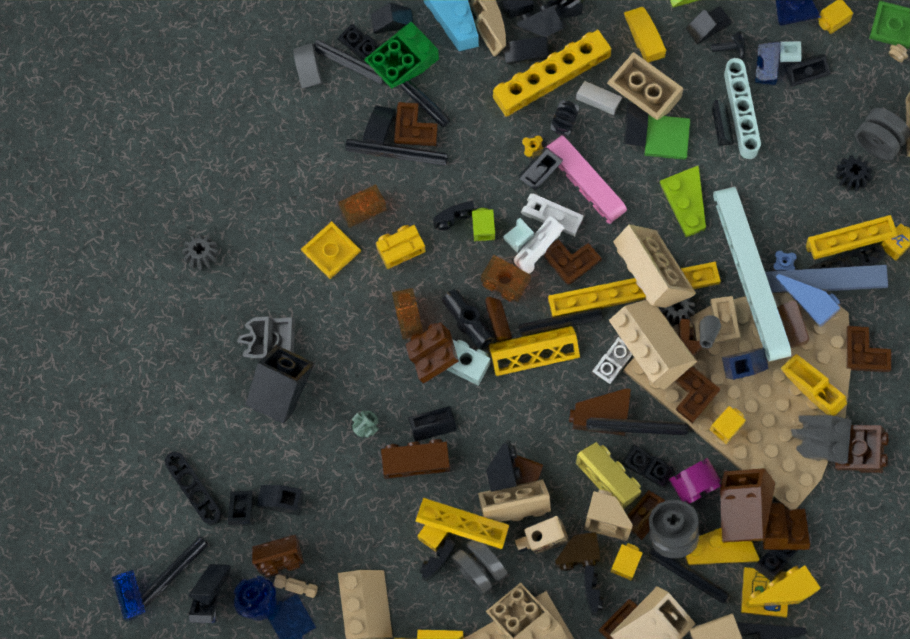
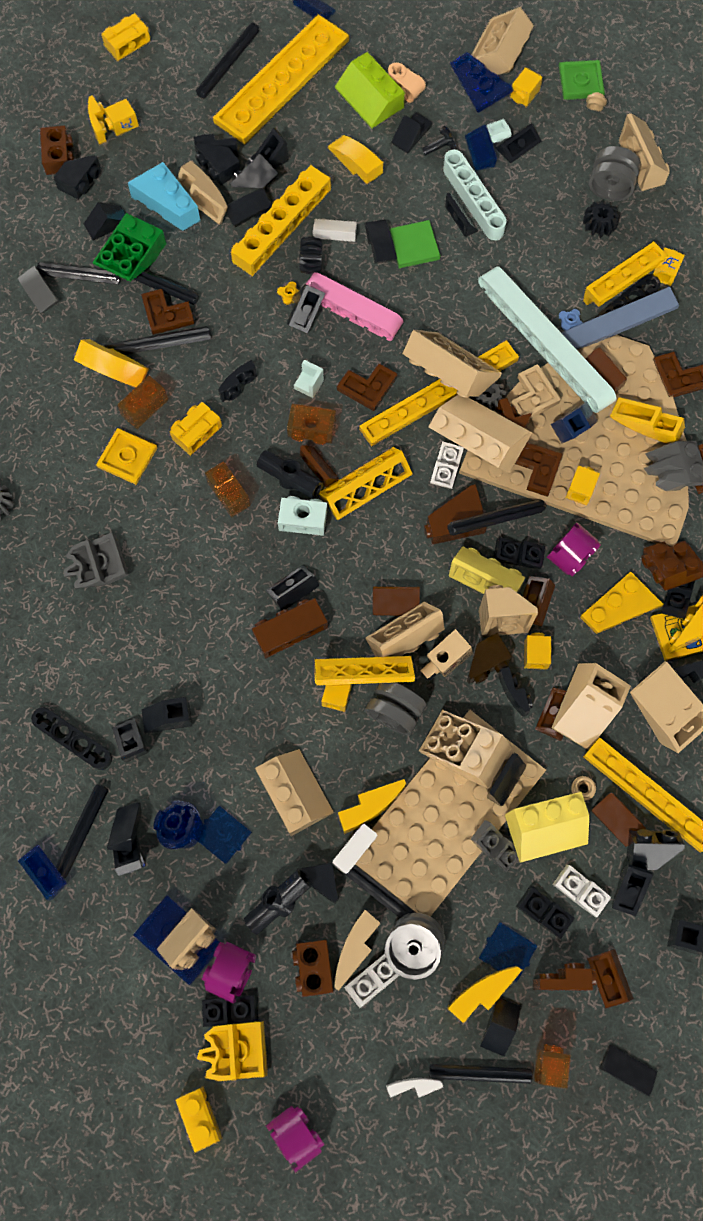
camera: 25 degrees left, 0 degrees up
(277, 555) = (185, 774): reddish brown slope -> none
(279, 383) = (122, 601): black slope -> none
(295, 586) = (214, 798): tan axle -> none
(347, 159) = (110, 363): none -> yellow slope
(358, 42) = (79, 252): black slope -> none
(365, 423) = (225, 610): sand green gear -> none
(378, 125) = (130, 321): black slope -> none
(432, 351) = (267, 516): reddish brown plate -> none
(434, 565) = (347, 727): black slope -> none
(483, 224) = (270, 380): lime brick -> none
(502, 470) = (381, 605): black slope -> none
(538, 244) = (331, 379): white plate -> none
(560, 321) = (380, 447): black axle -> none
(566, 217) = (333, 349): white plate -> none
(646, 86) = (377, 200): tan slope -> none
(674, 529) = (572, 602): dark grey wheel -> none
(686, 200) = (455, 295): lime wing -> none
(690, 576) = (601, 643): black axle -> none
(709, 329) = (531, 401): dark grey cone -> none
(745, 504) = (632, 554): reddish brown slope -> none
(814, 301) = (615, 342): medium blue slope -> none

